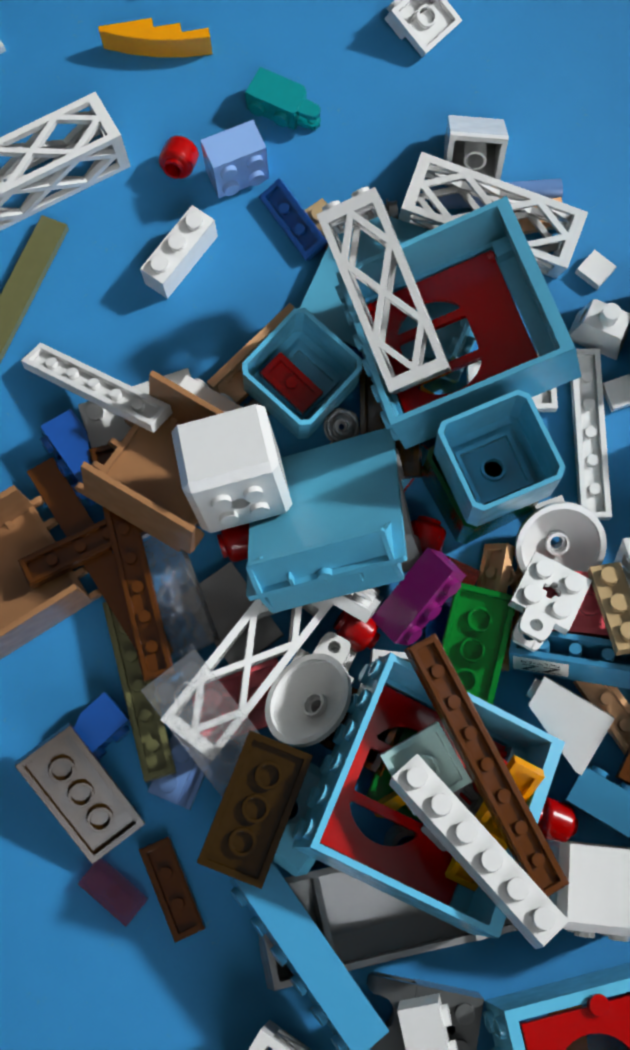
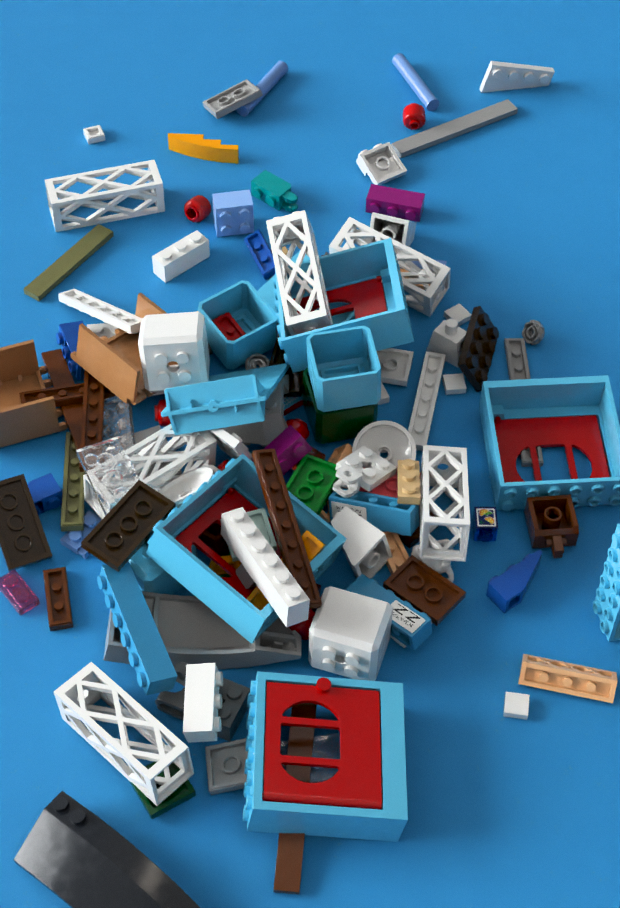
camera: 10 degrees right, 25 degrees down
(460, 85) = (395, 202): none -> magenta brick

